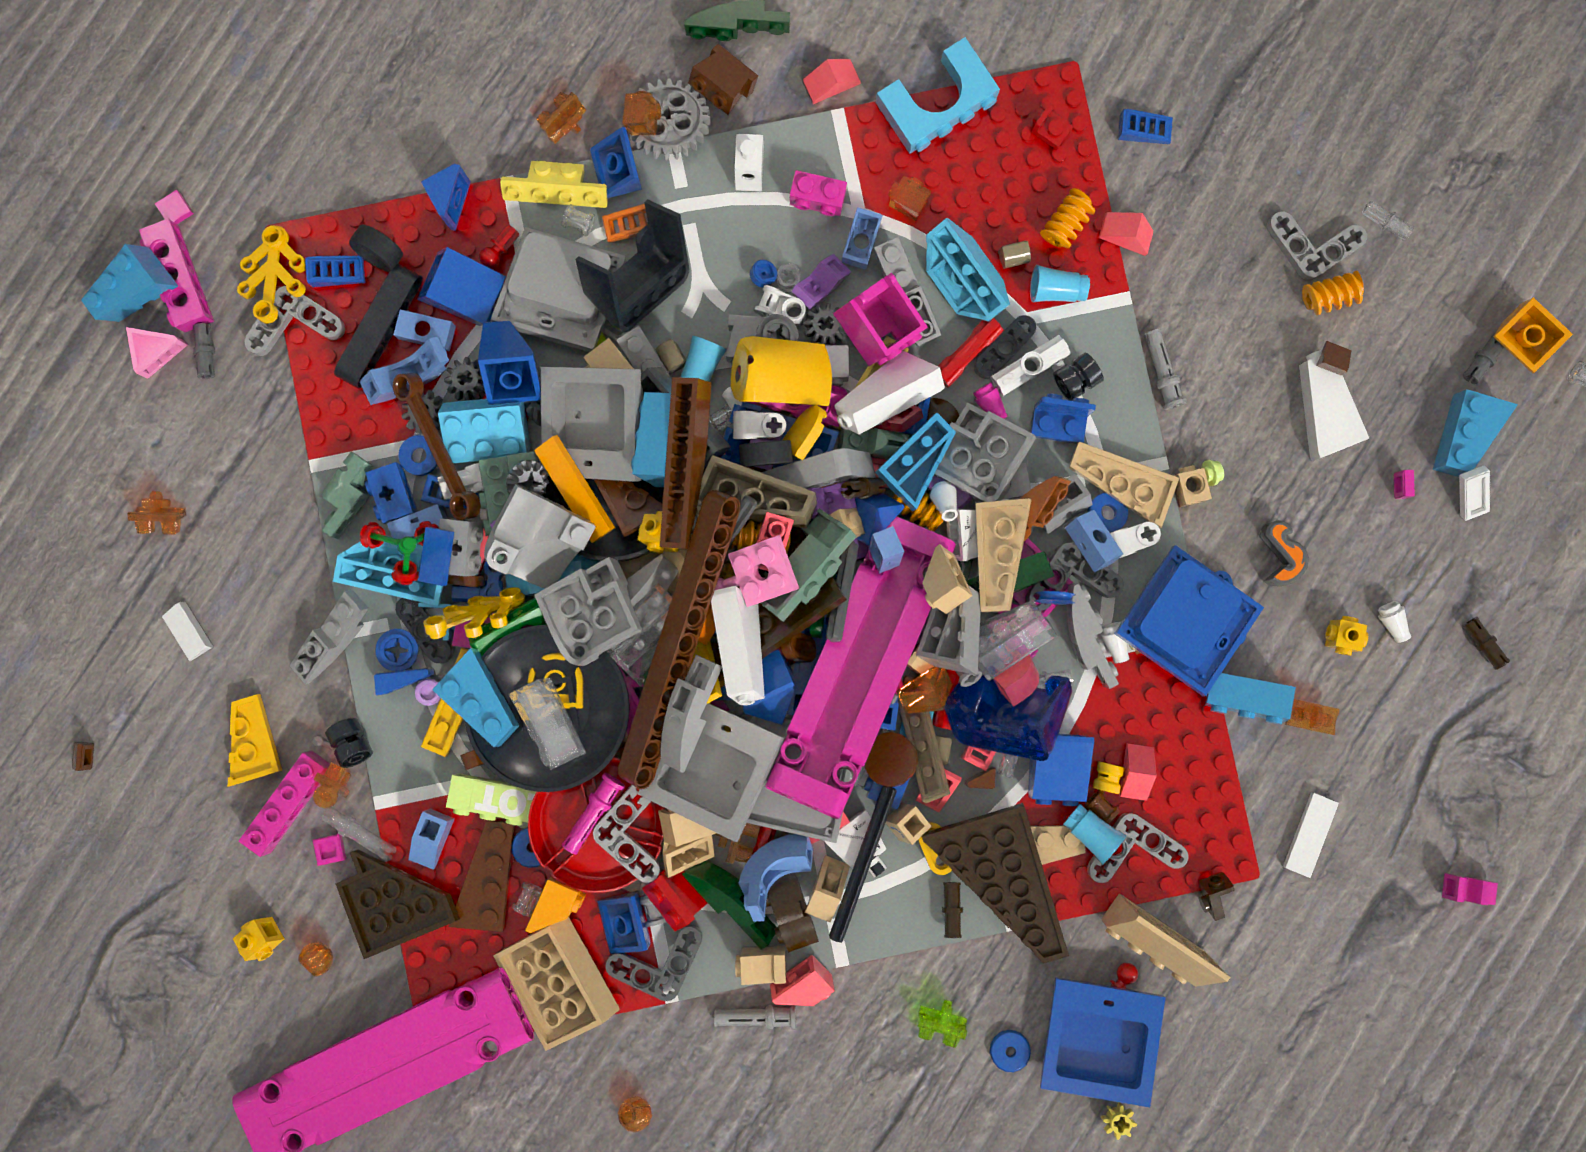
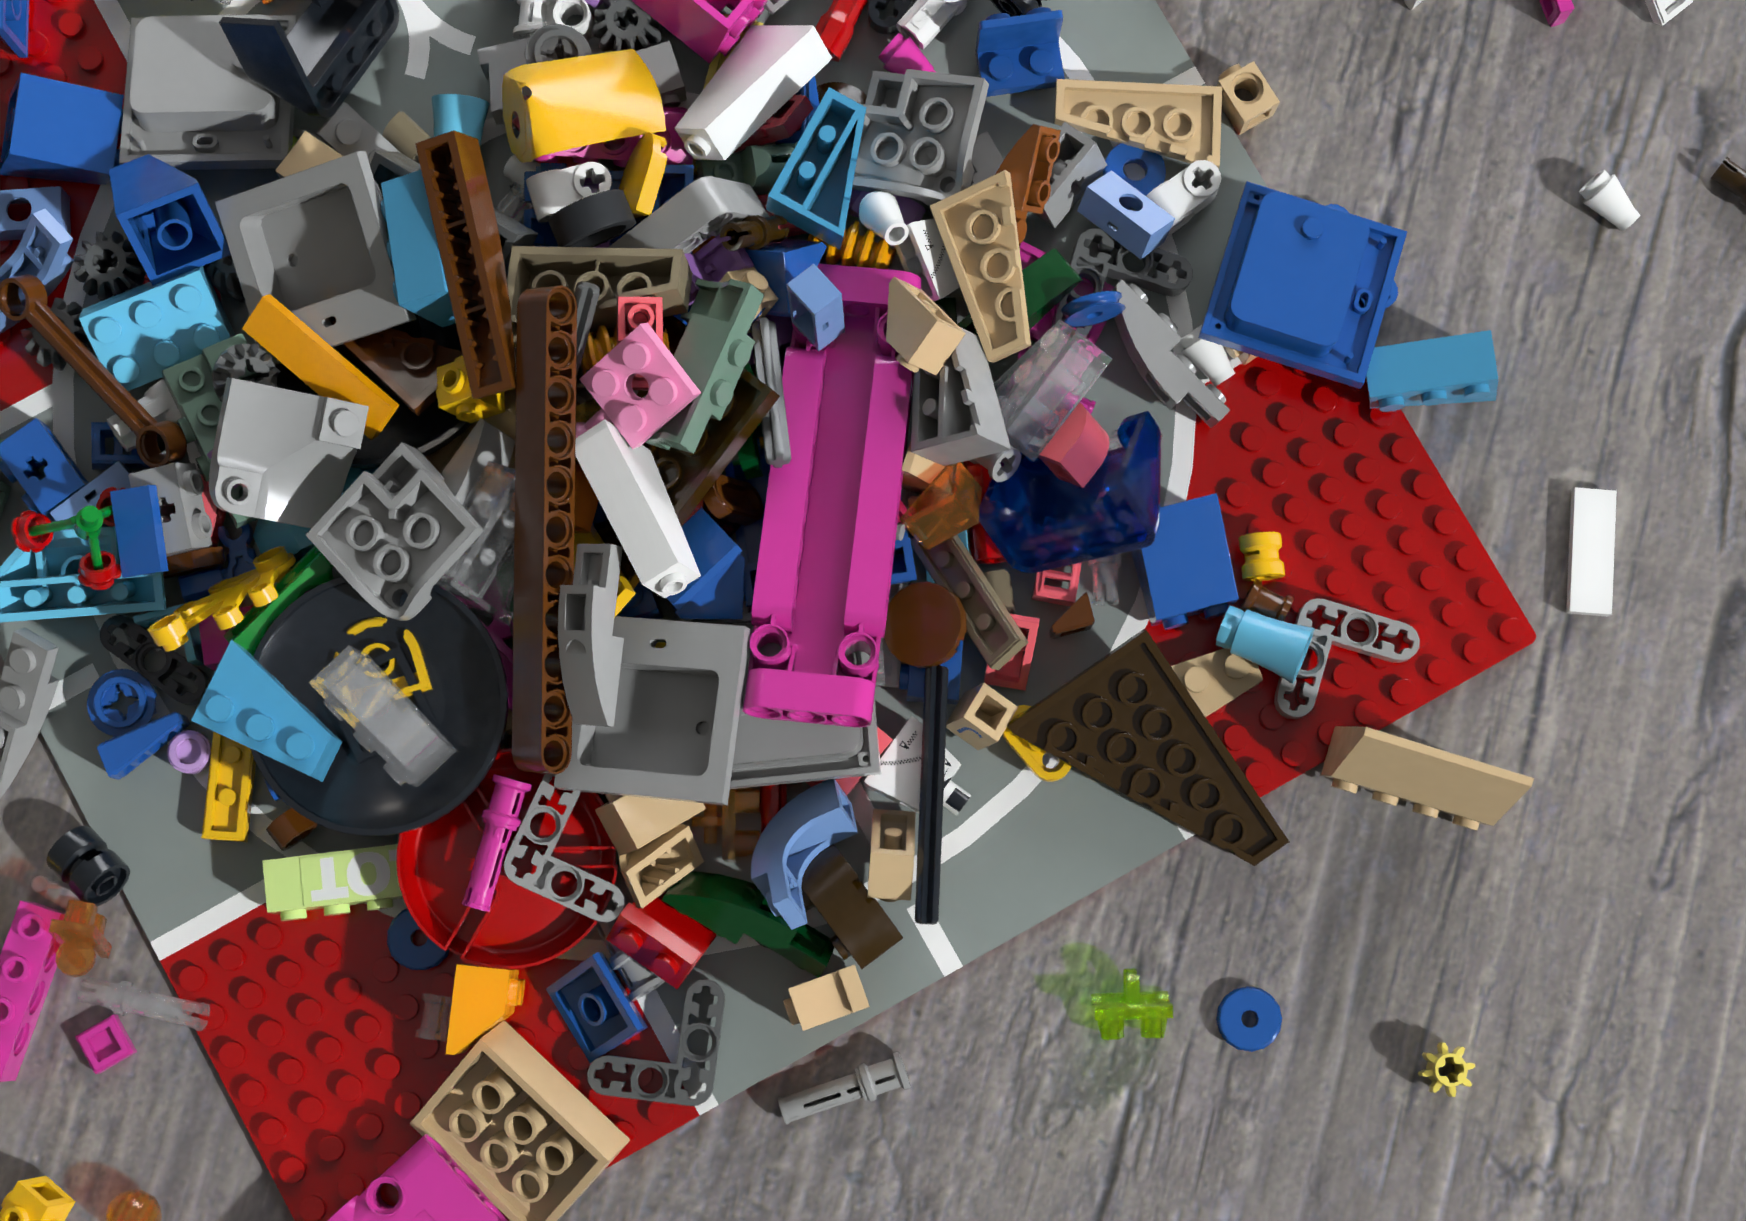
camera: 20 degrees left, 5 degrees down
(391, 905) = (227, 1095): dark brown wing -> none
(406, 460) = (51, 394): blue piece -> none
(430, 838) = (256, 971): medium blue slope -> none
(486, 885) = (366, 1016): reddish brown wing -> none
(490, 256) = (102, 55): red axle -> none
(804, 985) = (901, 1014): coral slope -> none
(952, 909) = (1091, 828): dark brown pin -> none
(1102, 1046) = (1383, 960): blue piece -> none
(1126, 975) = (1386, 845): red axle -> none
(1139, 772) = (1304, 537): coral slope -> none
(1211, 890) = (1469, 678): dark brown bracket -> none
(1214, 472) = (1271, 65): yellowish green plate -> none
(1289, 552) = (1418, 147): dark grey animal -> none
(1313, 717) = (1534, 374): clear orange hips -> none
(1338, 637) = (1535, 250): yellow brick -> none

